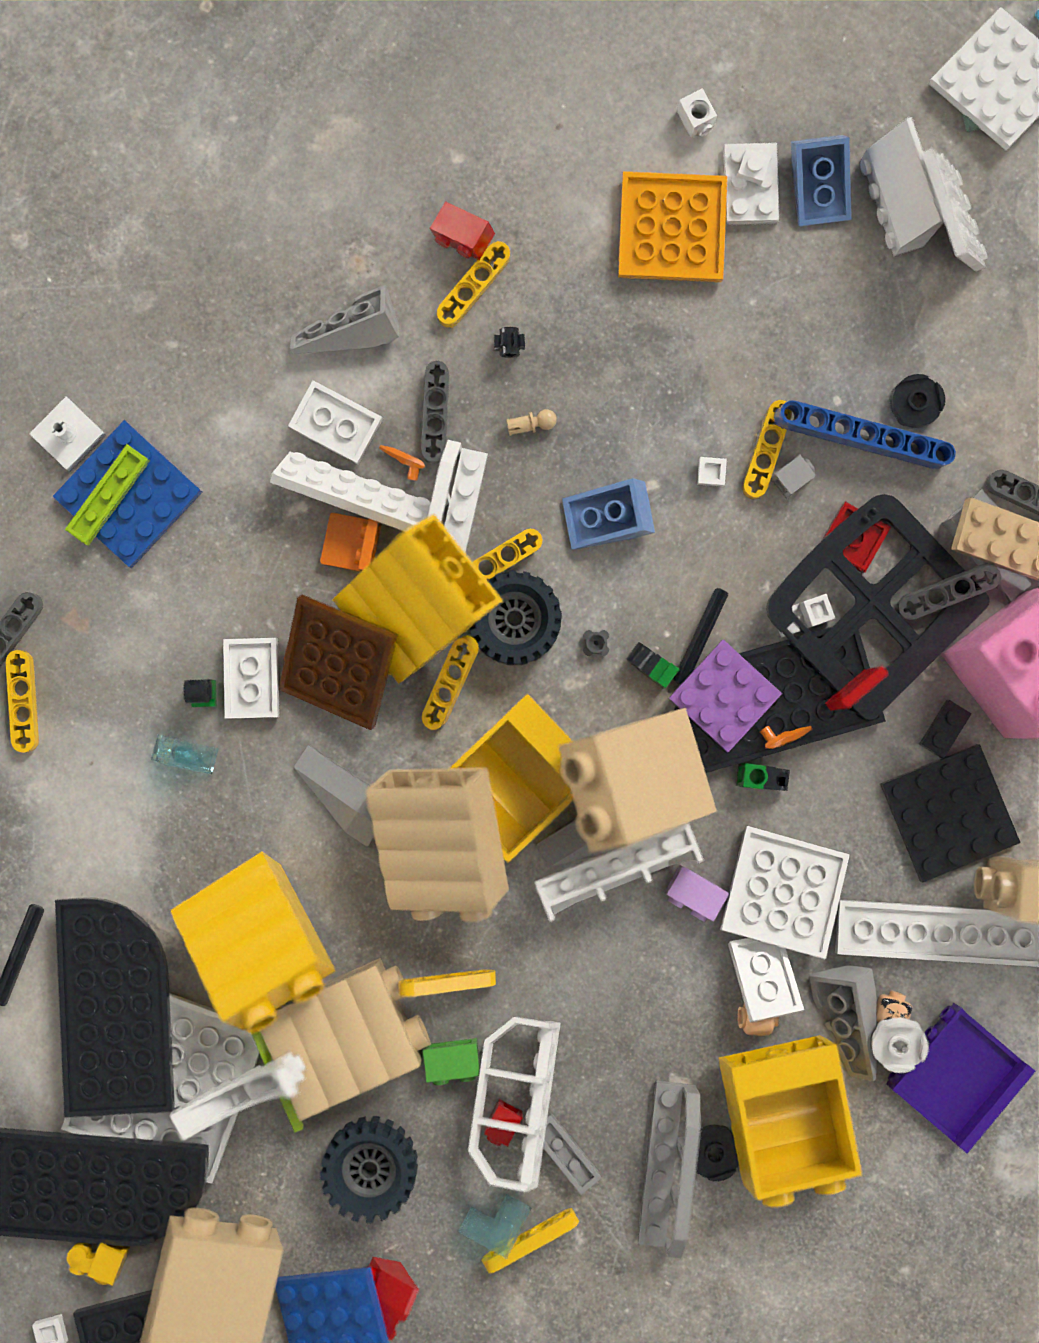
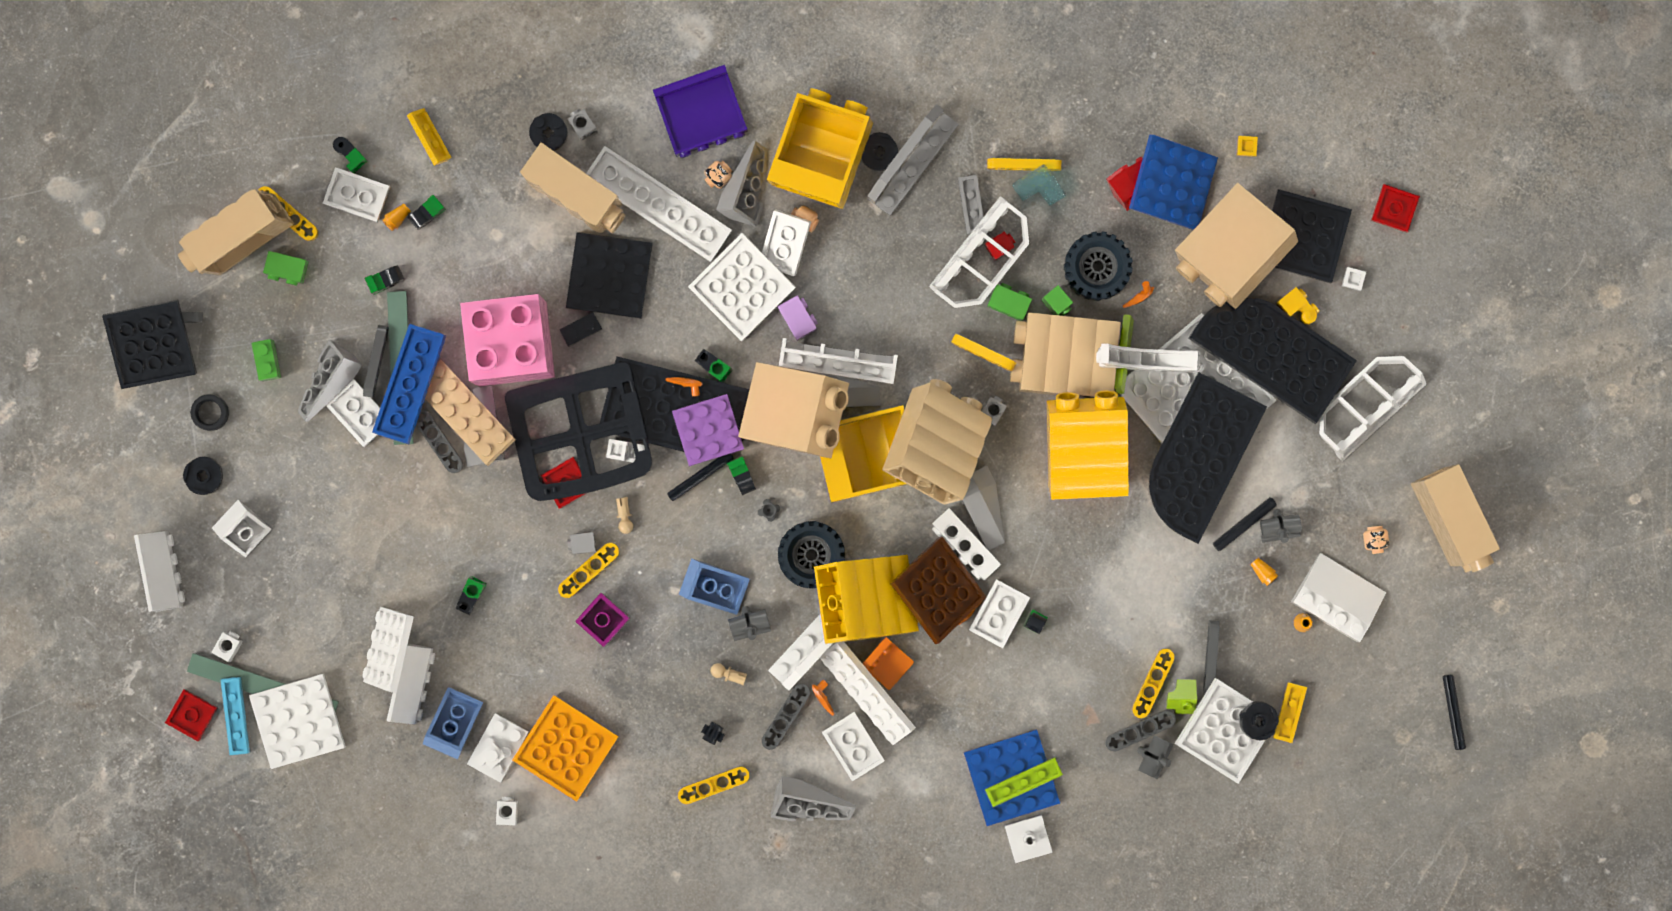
camera: 150 degrees left, 0 degrees up
(184, 754) = (1068, 590): clear light blue slope -> none
(296, 731) = (989, 563): none -> white brick
(297, 1160) = (1141, 296): none -> orange bar
(393, 1098) = (1057, 302): none -> bright green brick
(394, 930) = (1000, 404): none -> light grey brick
(446, 681) = (876, 539): yellow beam -> none
(462, 231) = (702, 822): brick -> none
(496, 560) = (801, 601): yellow beam -> none
(541, 493) = (749, 624): none -> dark grey pin
(711, 471) = (632, 576): white plate -> none
(718, 398) = (602, 619): none -> magenta brick
(755, 527) = (625, 525): none -> tan pin
(856, 688) = (626, 388): red tile -> none
(877, 434) = (515, 539): blue beam -> none
(889, 340) = (470, 595): none -> leg
(899, 1029) = (721, 164): white plate -> none
(925, 388) = (466, 551): black plate -> none
(950, 595) = (529, 414): dark grey beam -> none

